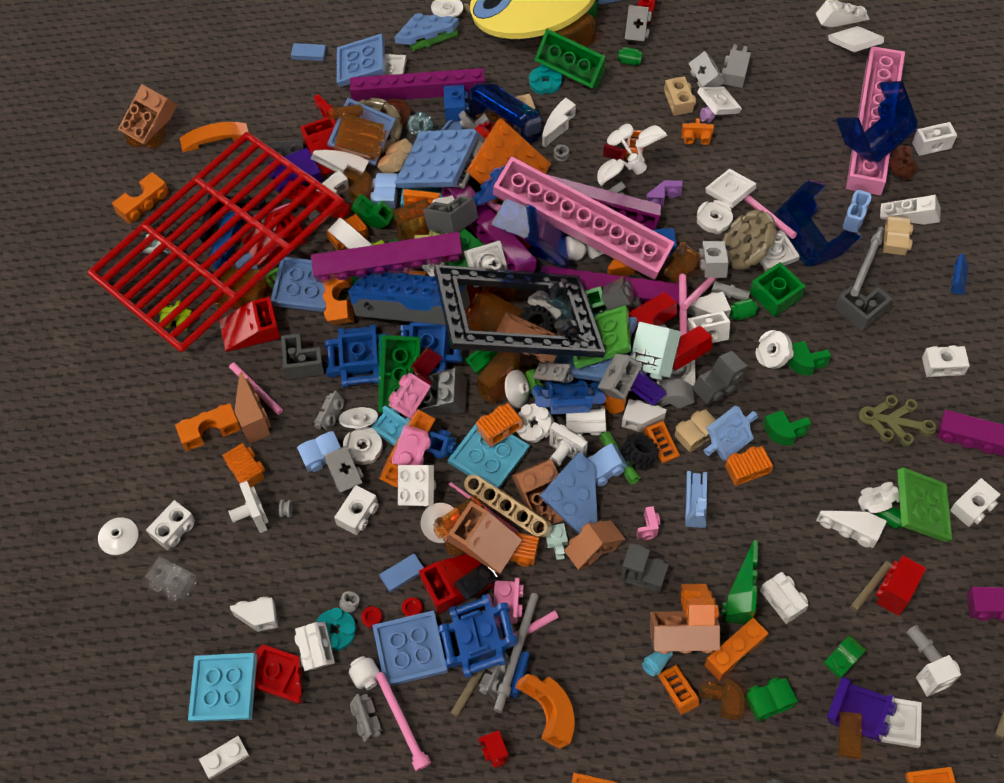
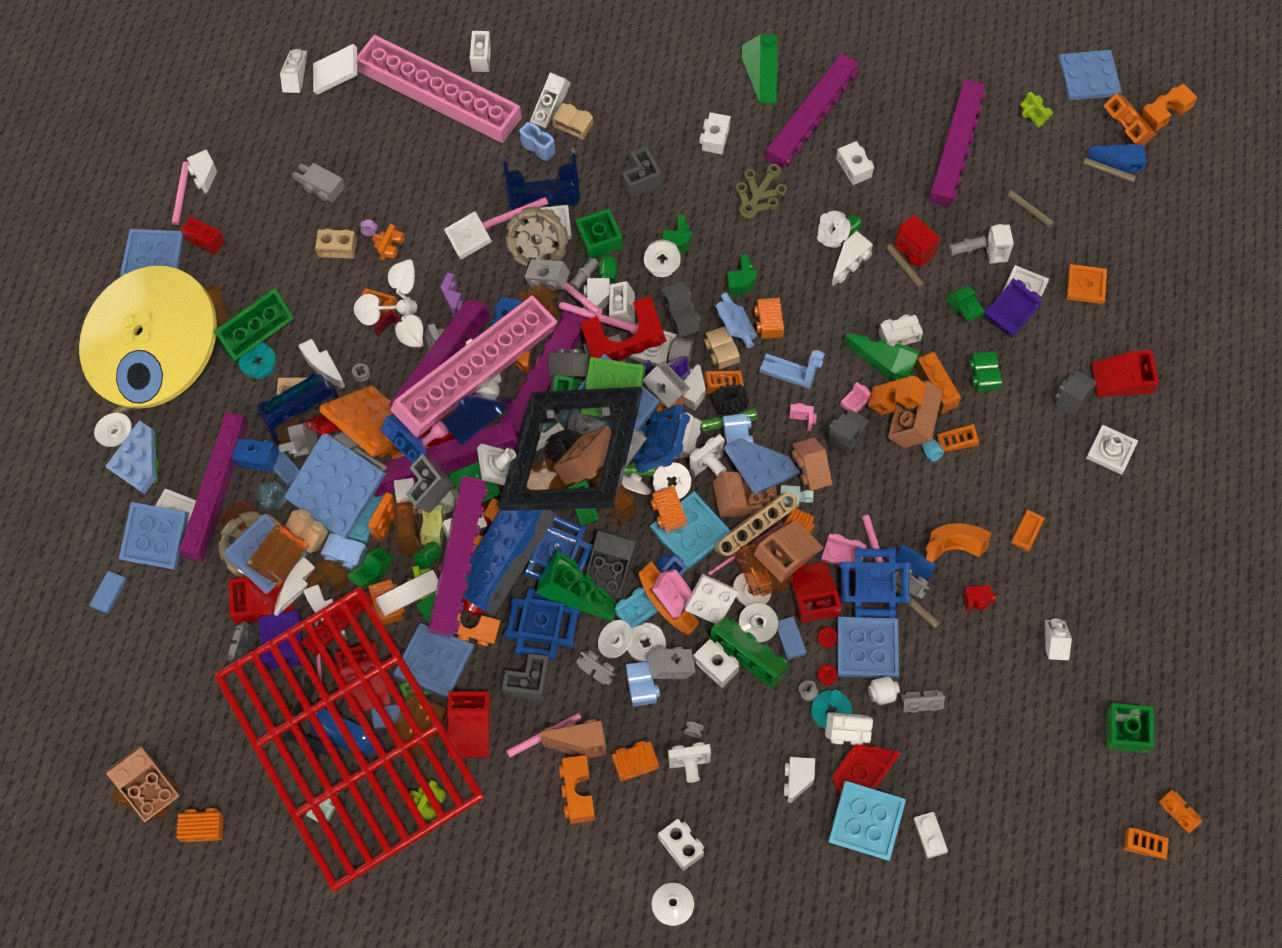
camera: 75 degrees left, 5 degrees up
(125, 168) = (200, 826): none -> orange brick
(132, 208) = (260, 829): orange arch -> none
(170, 579) = (742, 852): clear brick -> none
(212, 133) = (188, 721): orange slope -> none
(322, 105) = (205, 589): red plate -> none
(337, 112) = (244, 558): clear orange tile -> none
(372, 535) = (749, 652): none -> green slope
(407, 537) = (749, 622): none -> white dish
(408, 395) = (610, 583): bright pink bracket -> none
(419, 758) = (973, 662): bright pink piece -> none
(425, 364) = (583, 557): dark red bracket -> none
(476, 581) = (823, 571): black hinge -> none
(504, 689) = (930, 574): light grey bar -> none
(630, 56) = (263, 272): green brick -> none
(634, 14) = (220, 250): light grey brick -> none
(655, 349) = (648, 345): light aqua brick -> none
(685, 571) = (856, 398): none -> bright pink bracket
(706, 71) = (308, 206): light grey brick -> none
(711, 224) = (496, 269): white plate -> none
(719, 100) = (357, 210): white tile -> none
(730, 698) = (978, 401): clear orange brick -> none
(850, 735) = (1029, 324): clear orange tile -> none
(876, 241) = (572, 139): light grey bar -> none
(894, 126) = (463, 79): clear blue windscreen -> none
(902, 162) = (499, 86): copper plate -> none
(924, 505) = (850, 198): bright green plate -> none
(960, 275) = (631, 91): blue slope -> none

